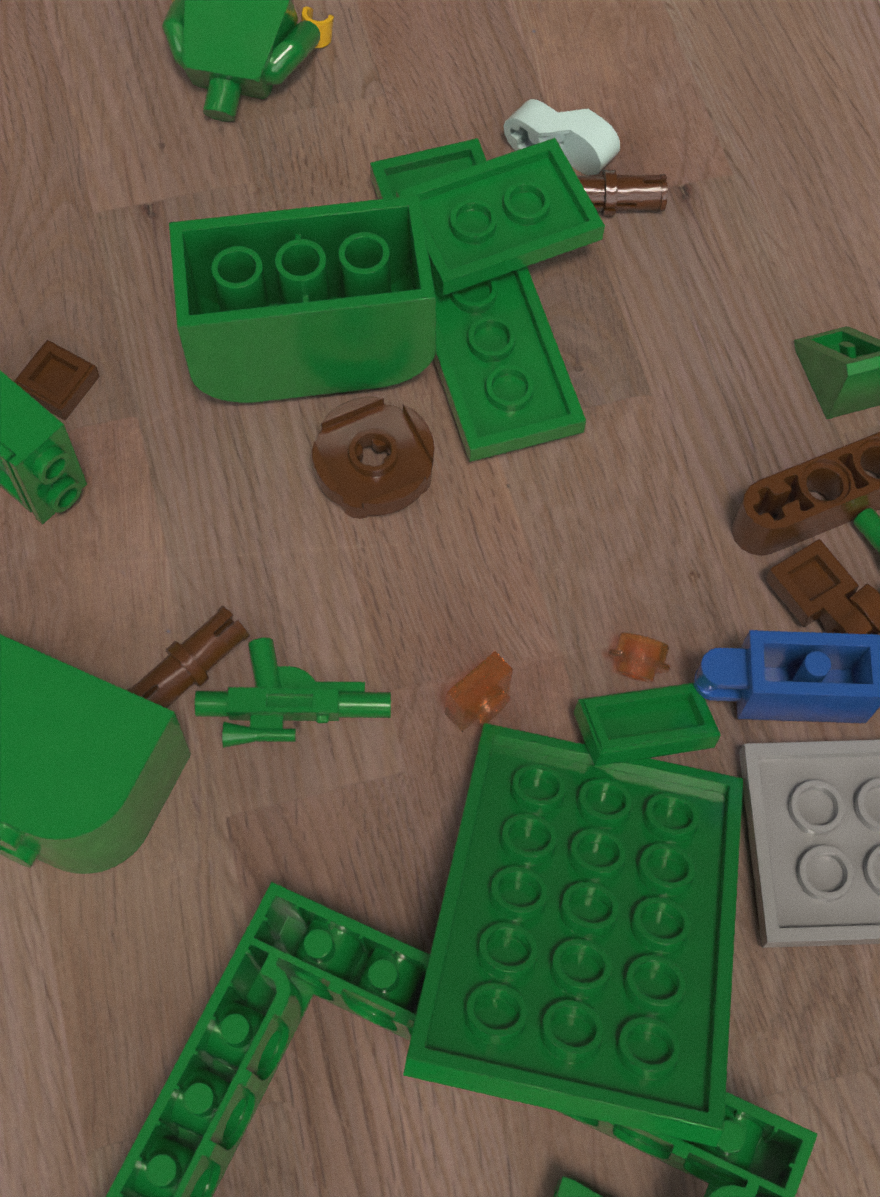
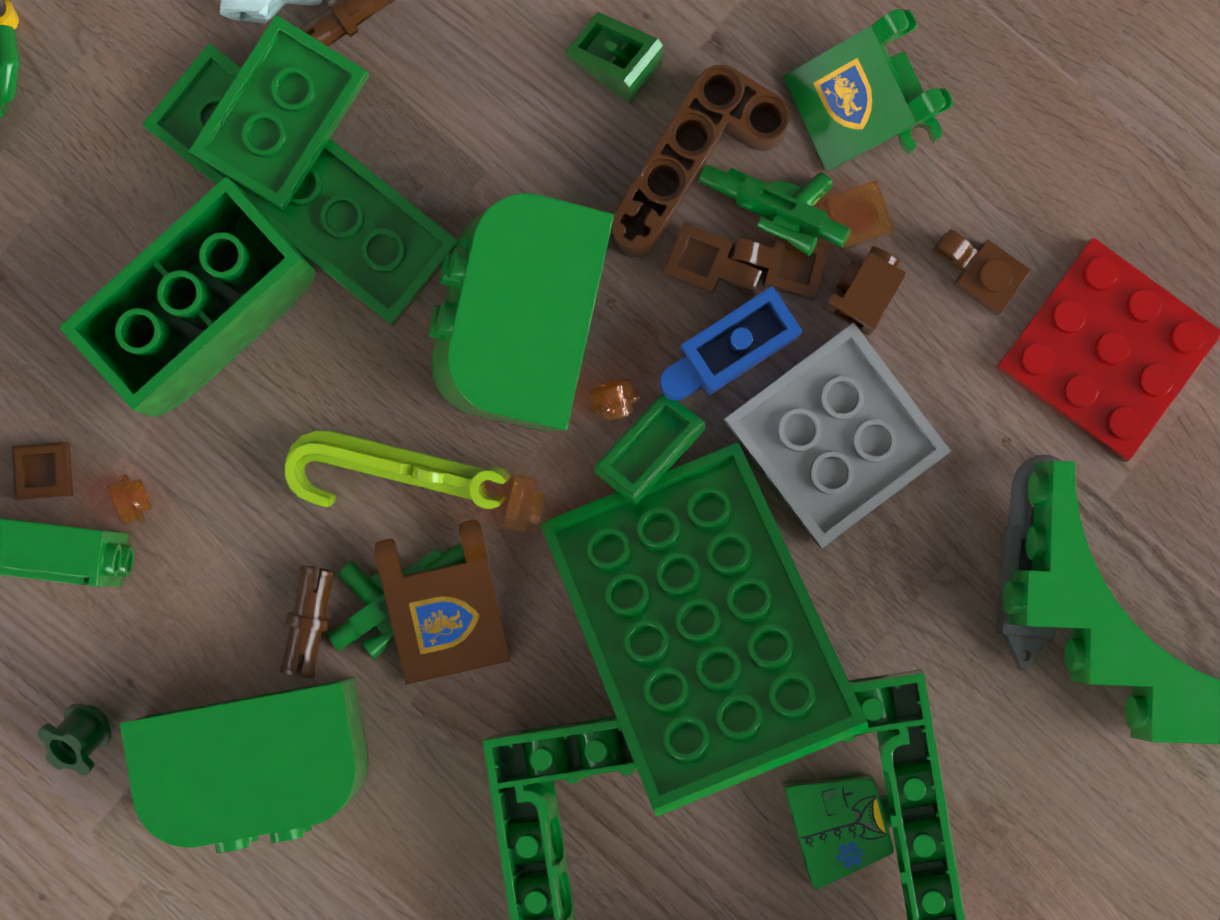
camera: 30 degrees left, 20 degrees up
(111, 449) = (129, 500): none -> clear orange plate
(324, 748) = (444, 615): none -> reddish brown flag
(366, 488) = (315, 343): reddish brown plate -> none
(377, 568) = (389, 463): none -> lime piece
(604, 497) = (519, 310): none -> green brick

